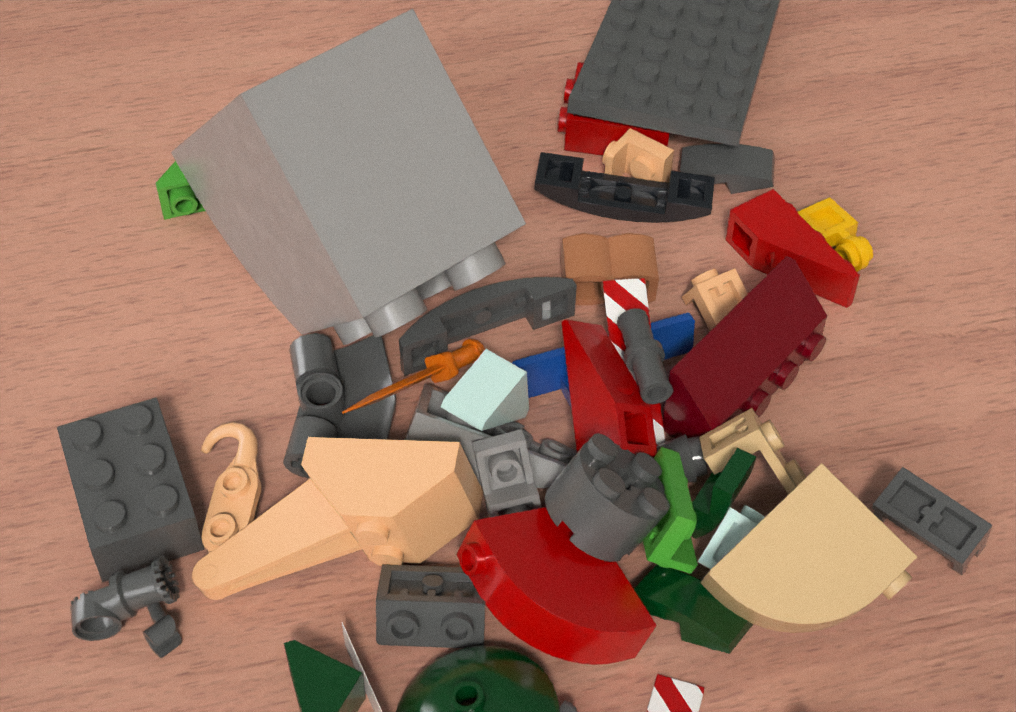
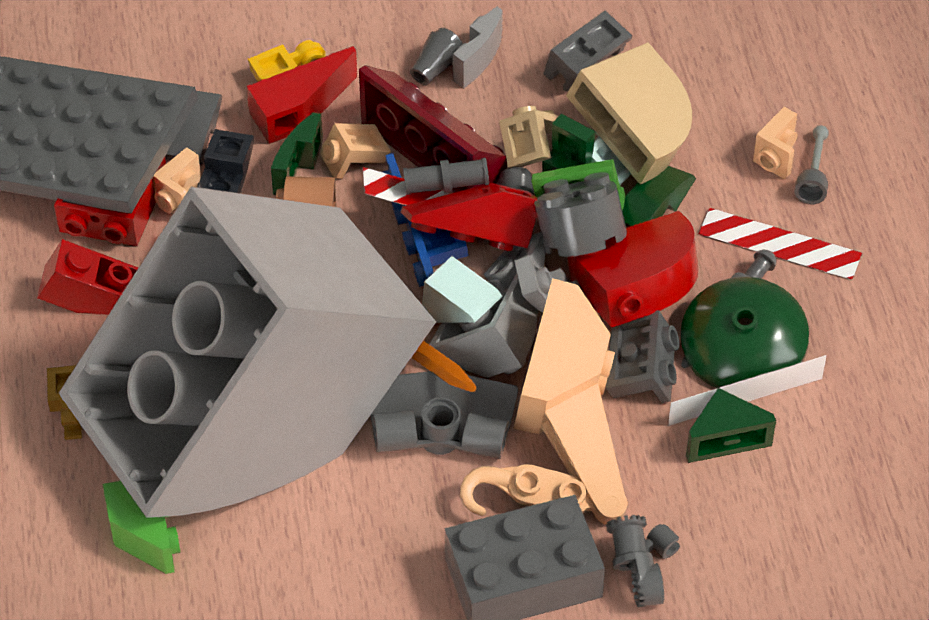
camera: 85 degrees left, 0 degrees up
(497, 113) = (84, 279): none -> red slope
(697, 247) = (298, 150): none -> dark green slope
(886, 369) = (435, 55): none -> dark grey cone
(921, 416) = (477, 54): none -> light grey slope

